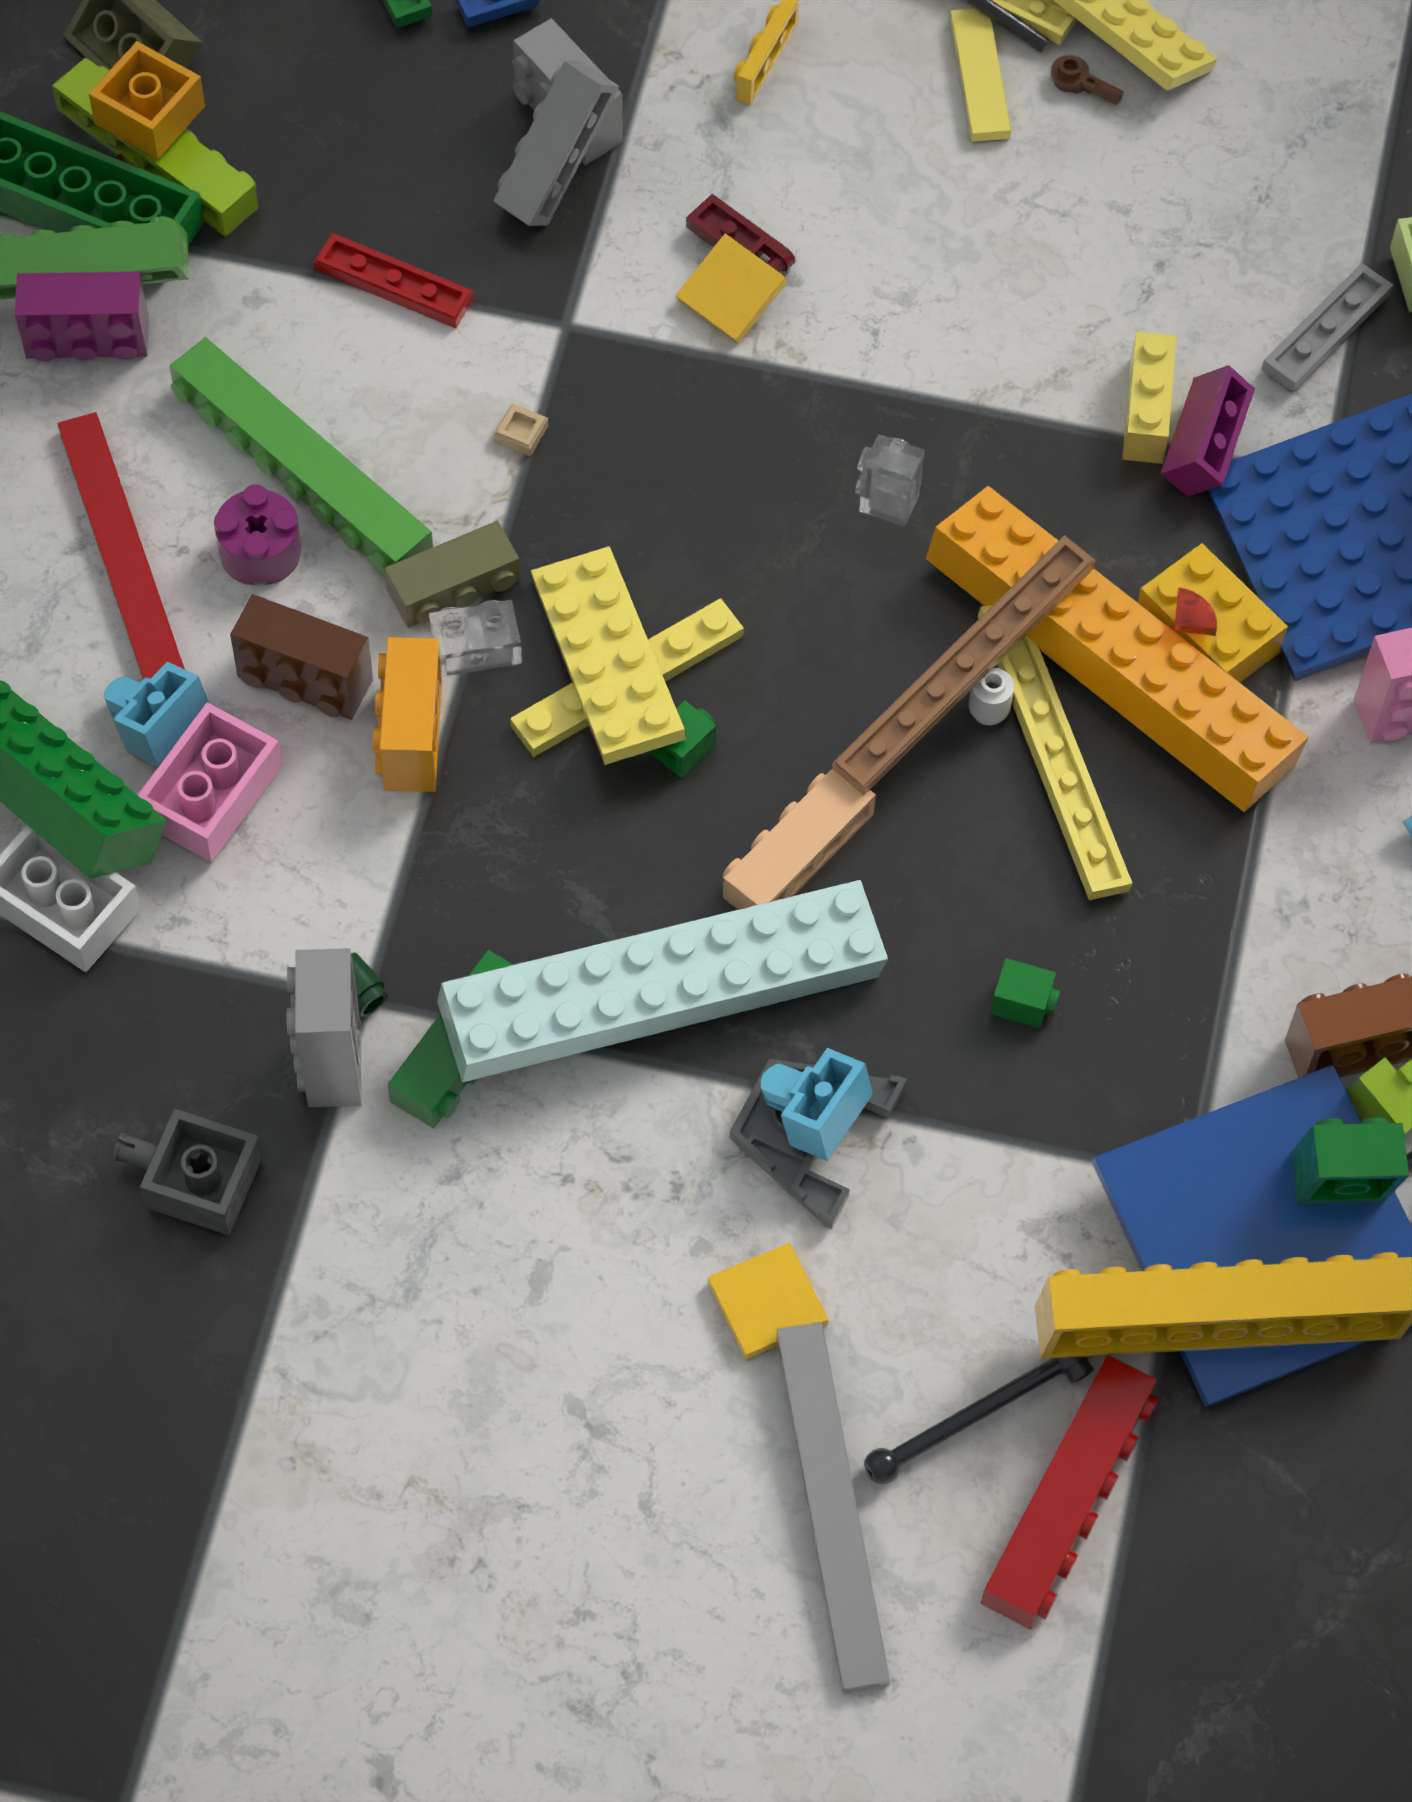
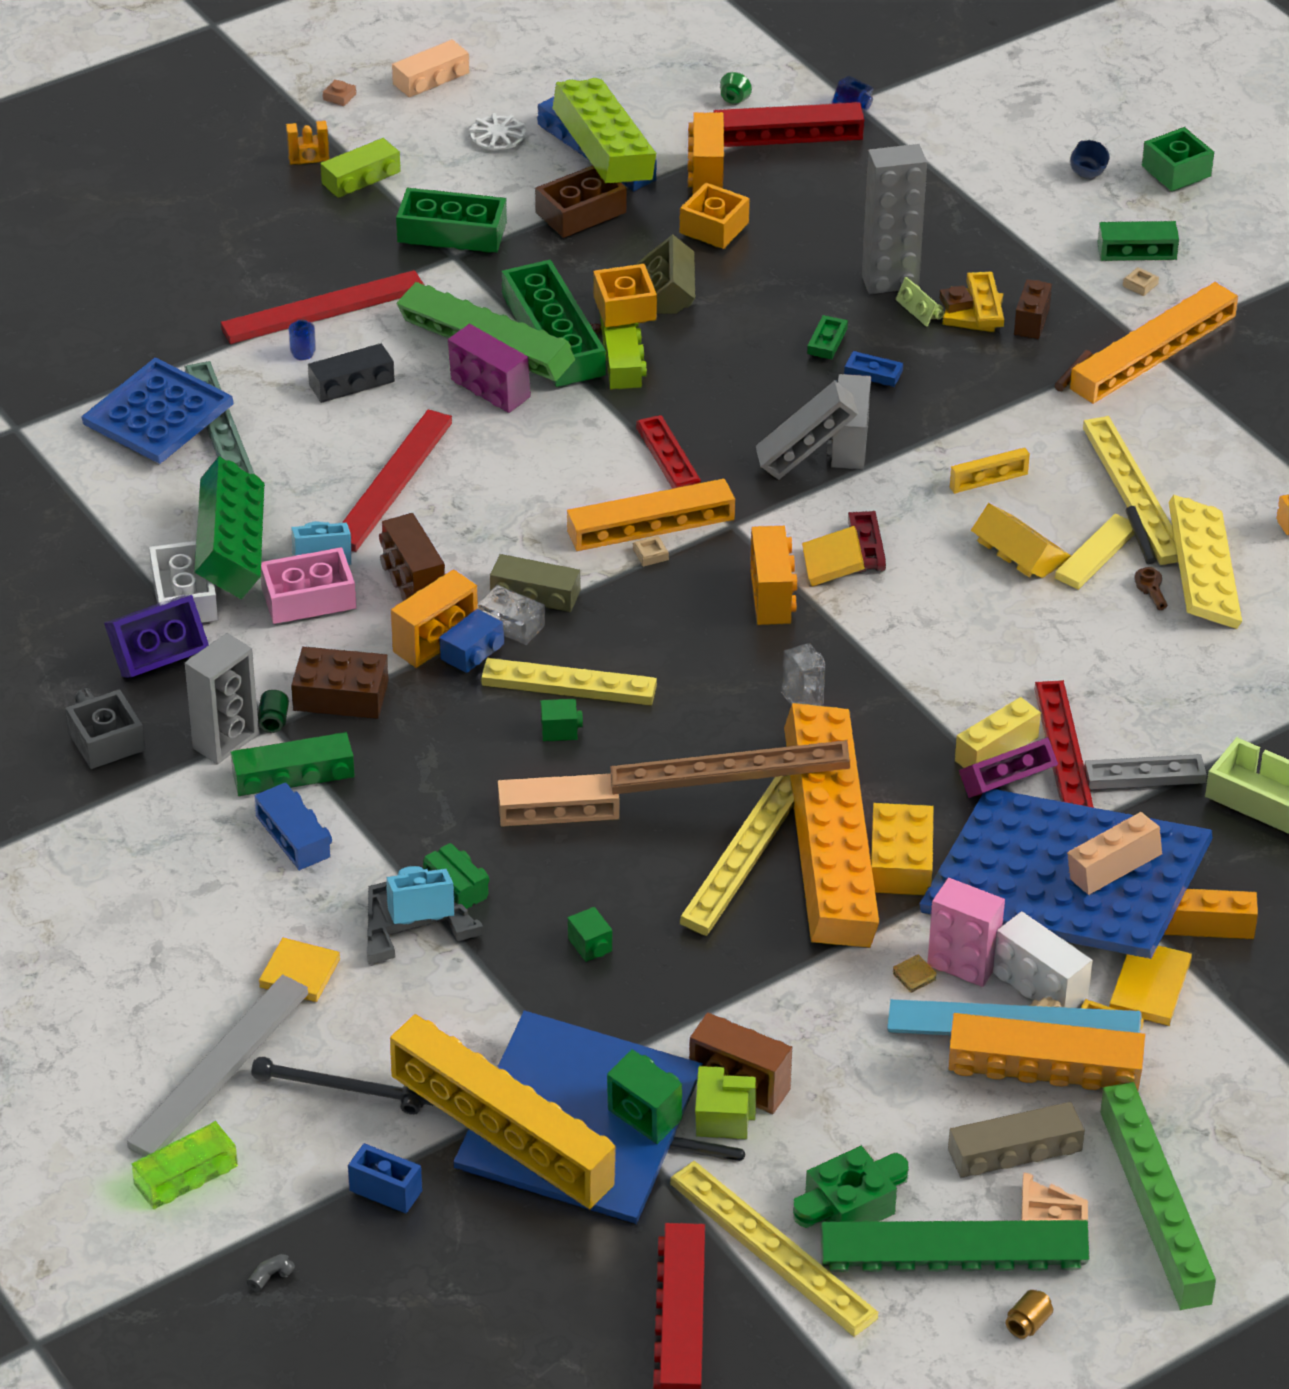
camera: 45 degrees right, 20 degrees down
(124, 996) = (156, 635): none -> dark purple brick
(258, 536) = (460, 507): magenta brick -> none
(297, 457) = (521, 485): bright green brick -> none
(391, 884) = (340, 682): none -> reddish brown brick
(474, 382) = (650, 514): none -> light orange brick
(478, 710) = (471, 640): none -> blue brick
(555, 1121) = (293, 826): none -> blue brick
(608, 655) = (564, 659): light yellow plate -> none
(660, 980) = (411, 797): light aqua brick -> none
(709, 366) = (772, 575): none -> light orange brick
(802, 1033) = (468, 881): none -> green brick
(901, 124) = (1018, 542): none -> yellow slope
(946, 1664) = (184, 1165): none -> clear neon green brick
(992, 697) = (737, 802): white brick -> none
(1068, 1493) = (333, 1144): red brick -> none
(1167, 1706) = (278, 1263): none -> dark grey arm
(1173, 1490) = (384, 1178): none -> blue brick
(1194, 614) = (880, 825): clear red tile -> none
(1207, 351) = (1060, 730): none -> red tile
(1375, 764) = (914, 973): none -> clear yellow tile

